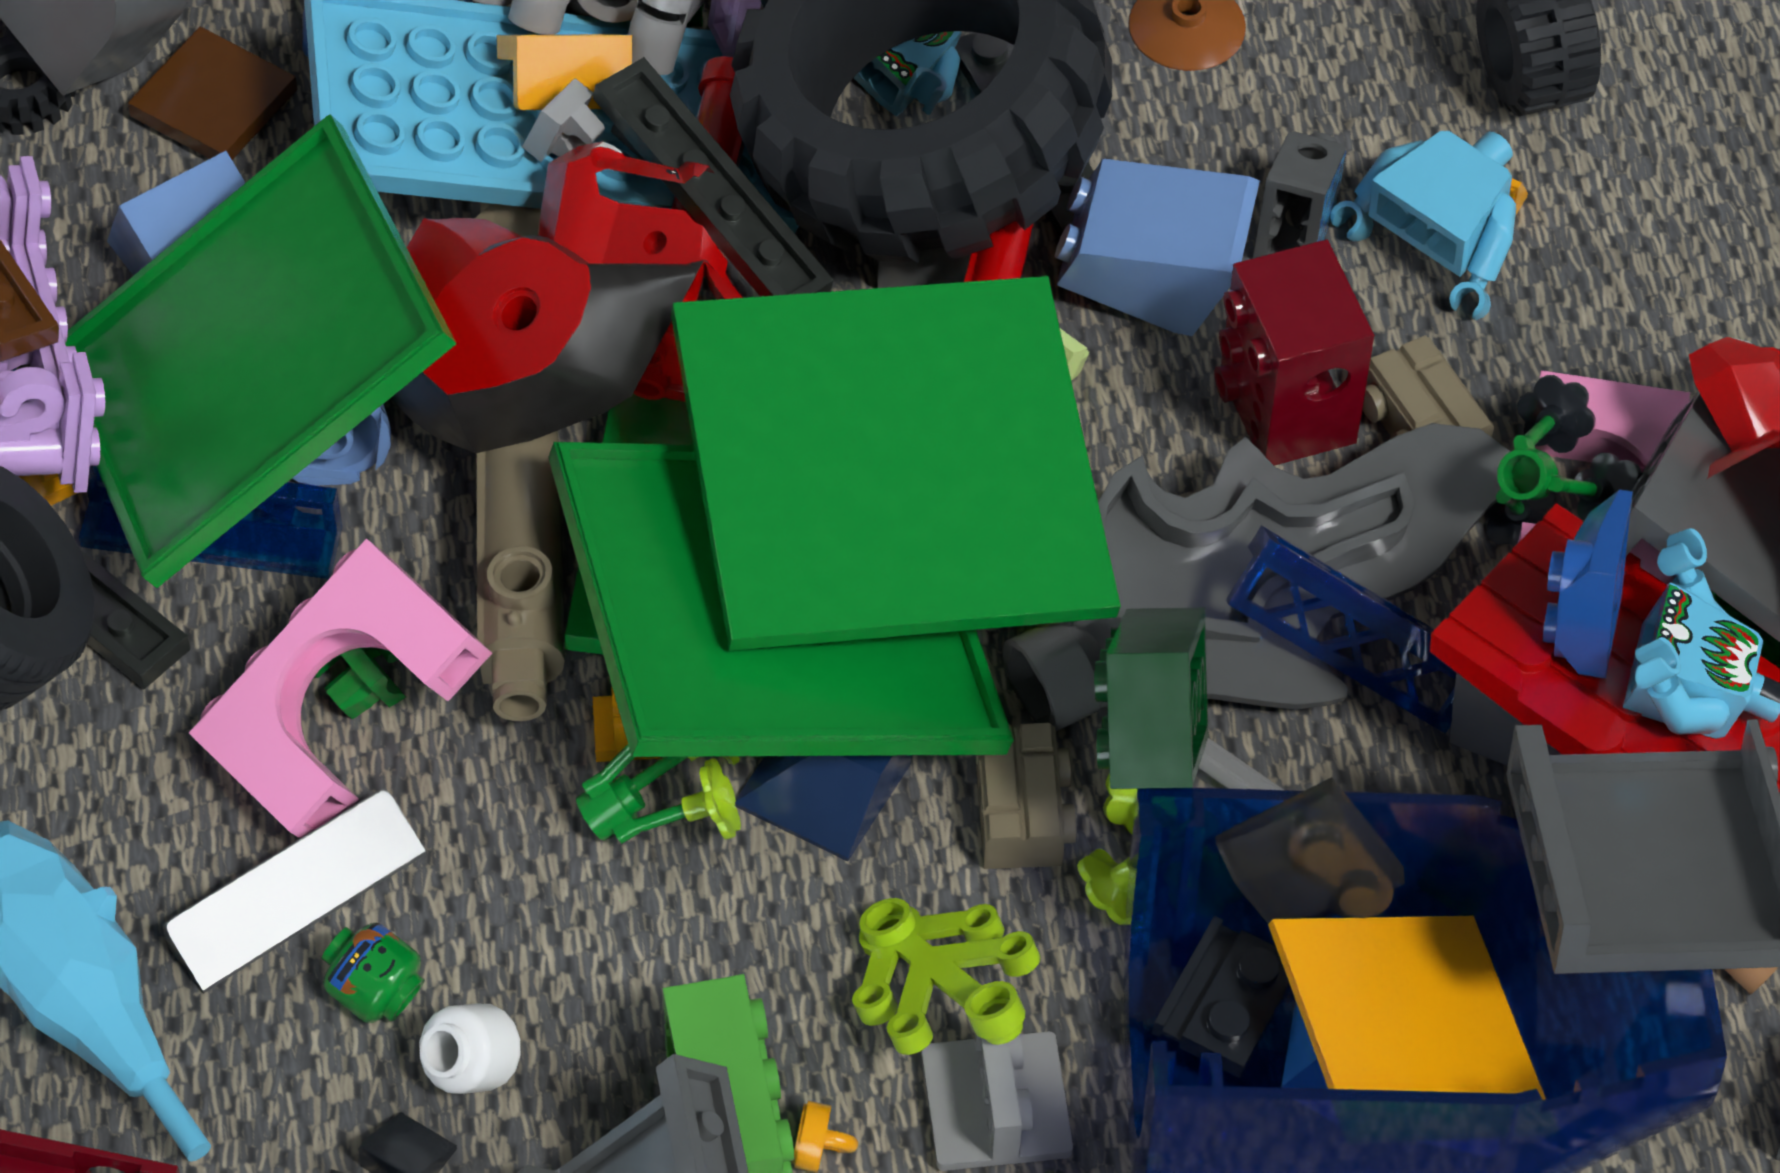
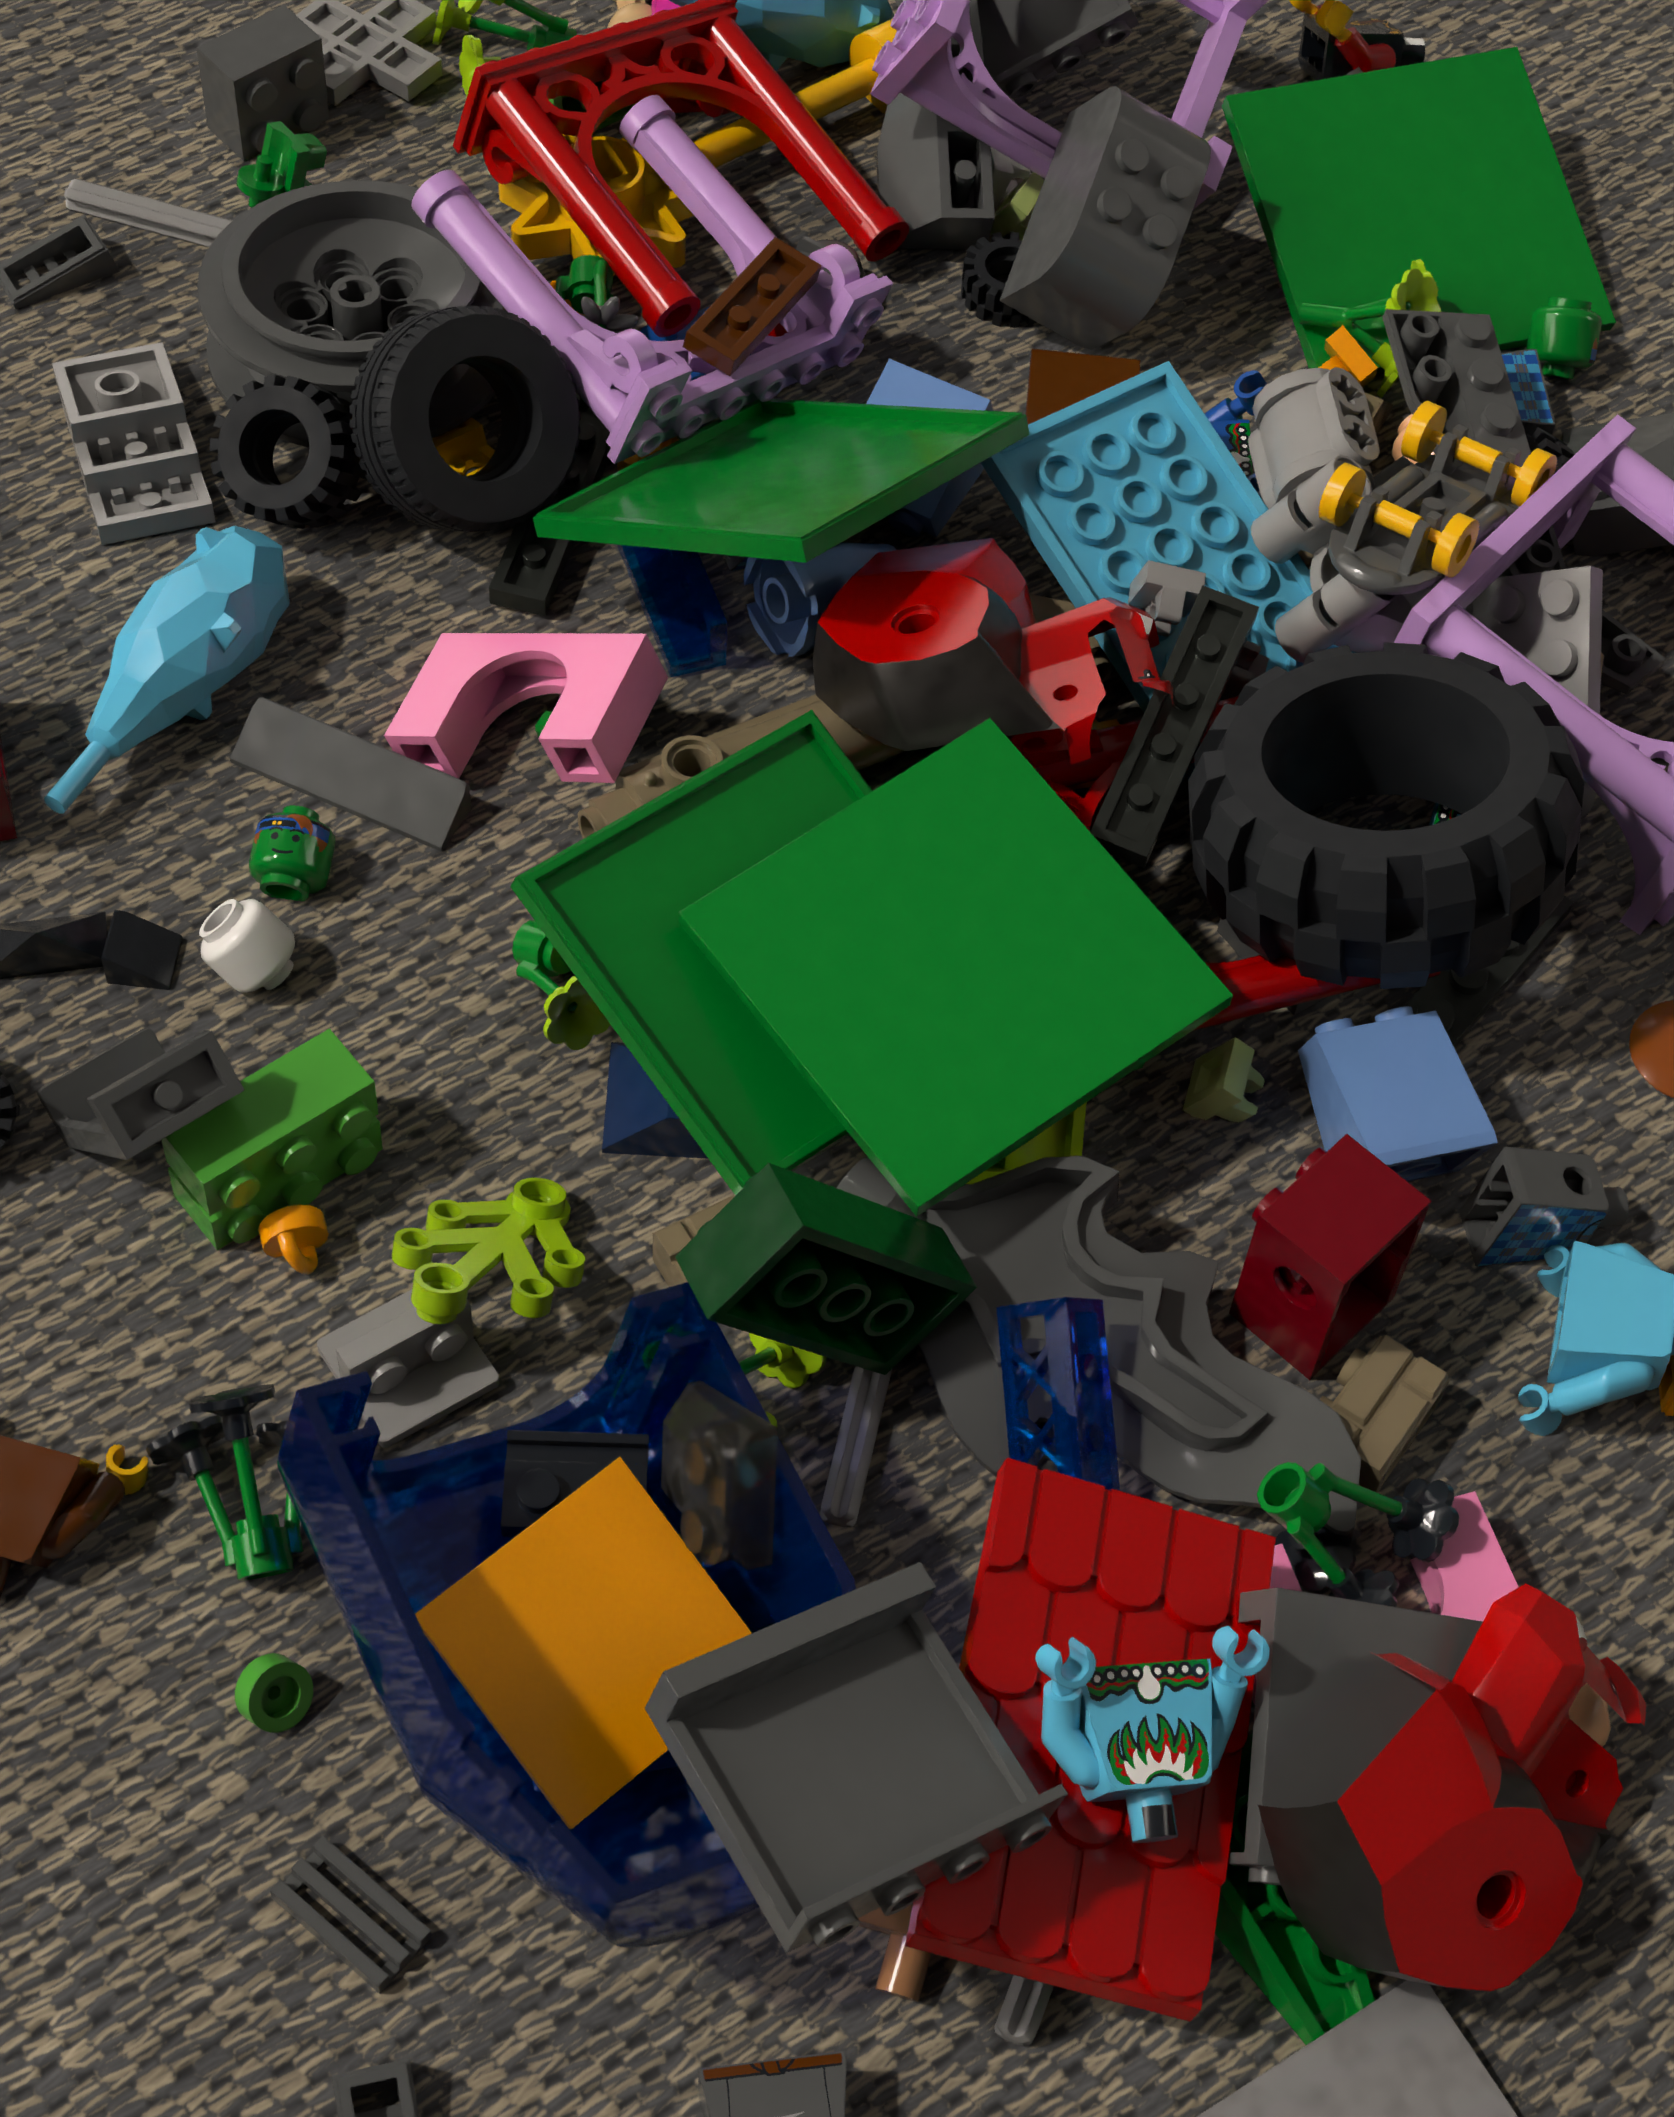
camera: 60 degrees right, 0 degrees up
(551, 61) = (1236, 569): light orange panel -> none
(1589, 587) = (1147, 1583): blue slope -> none

